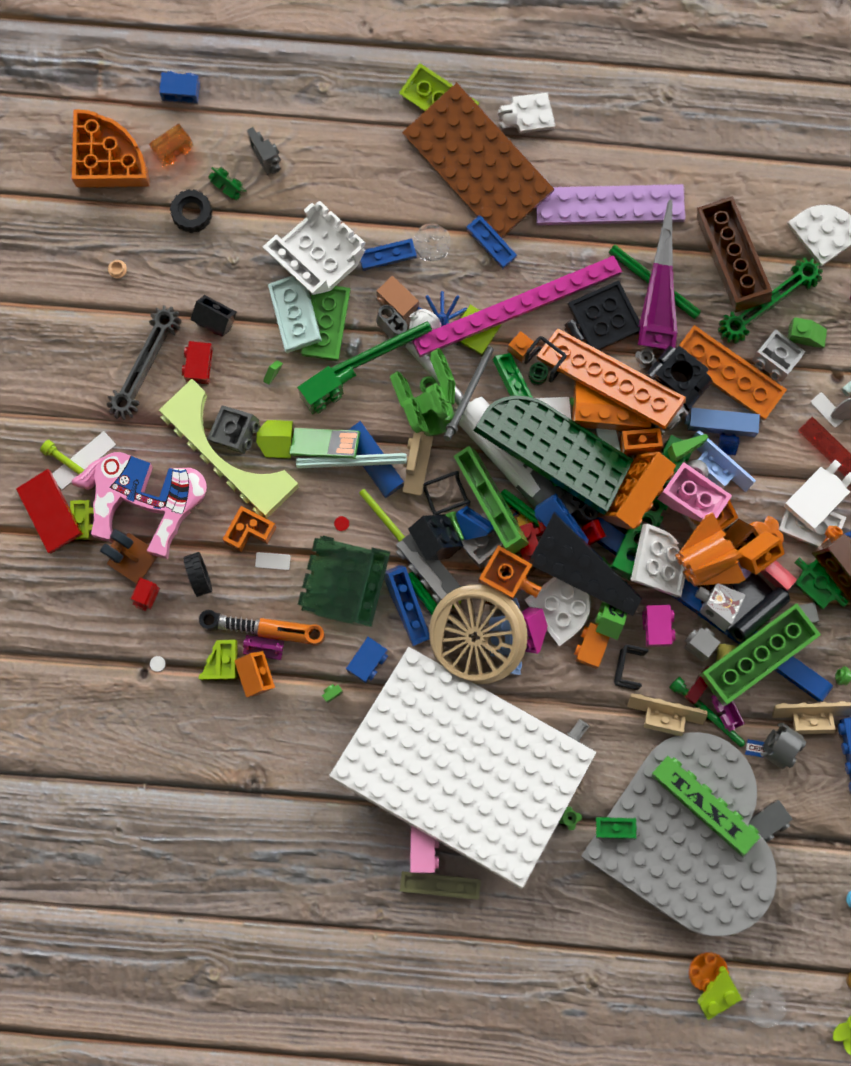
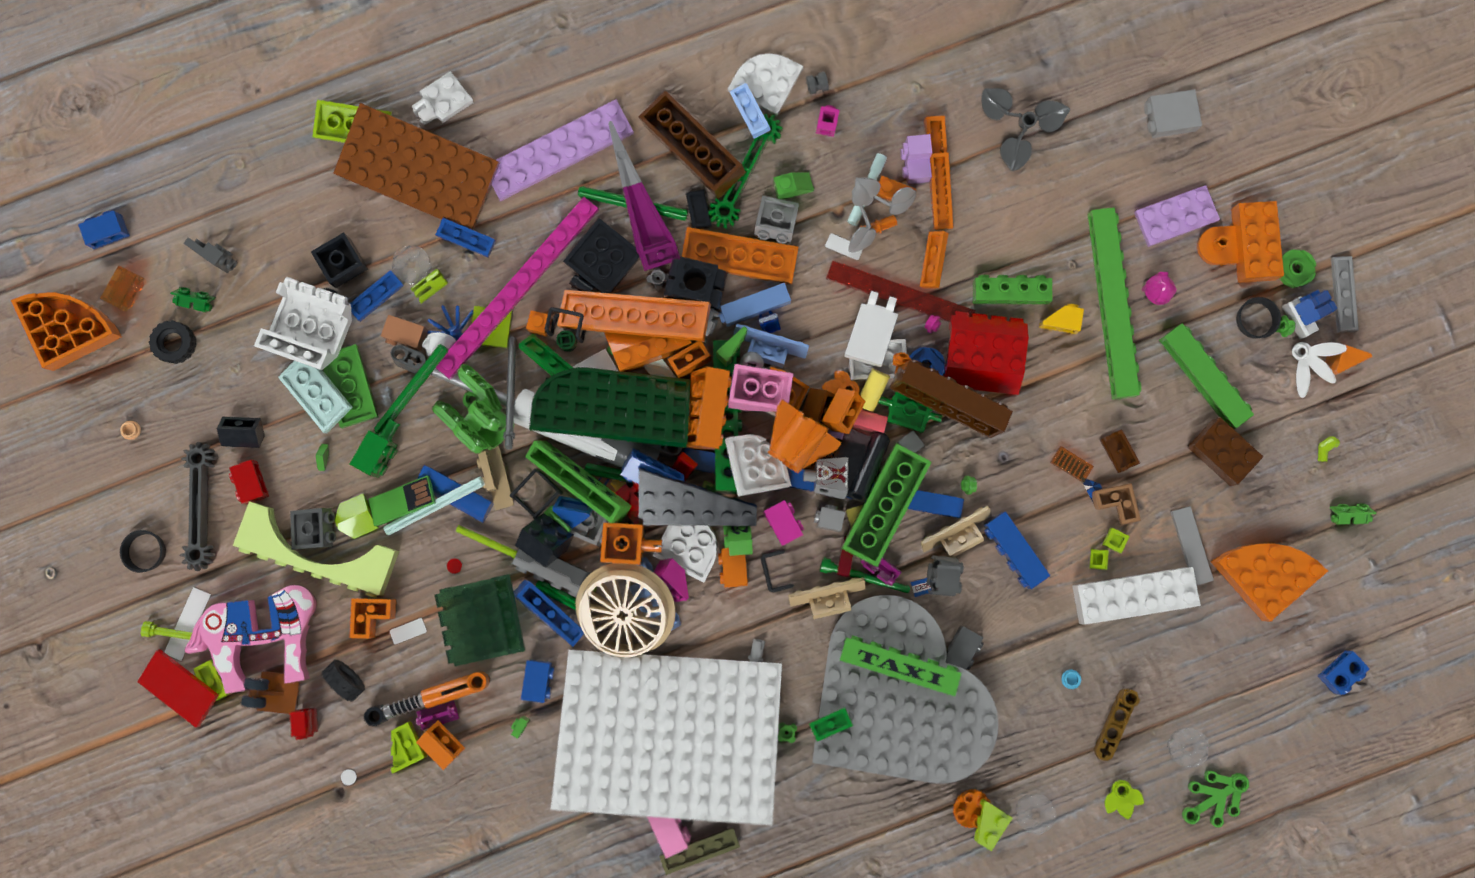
camera: 25 degrees left, 5 degrees up
(65, 365) = (125, 546): none -> black tyre
(372, 209) = (339, 260): none -> black brick
(439, 268) = (429, 285): none -> lime arm
(711, 314) = (698, 209): none -> black tile
(796, 547) = (873, 389): none -> light yellow brick
(800, 249) = (750, 110): none -> light blue plate

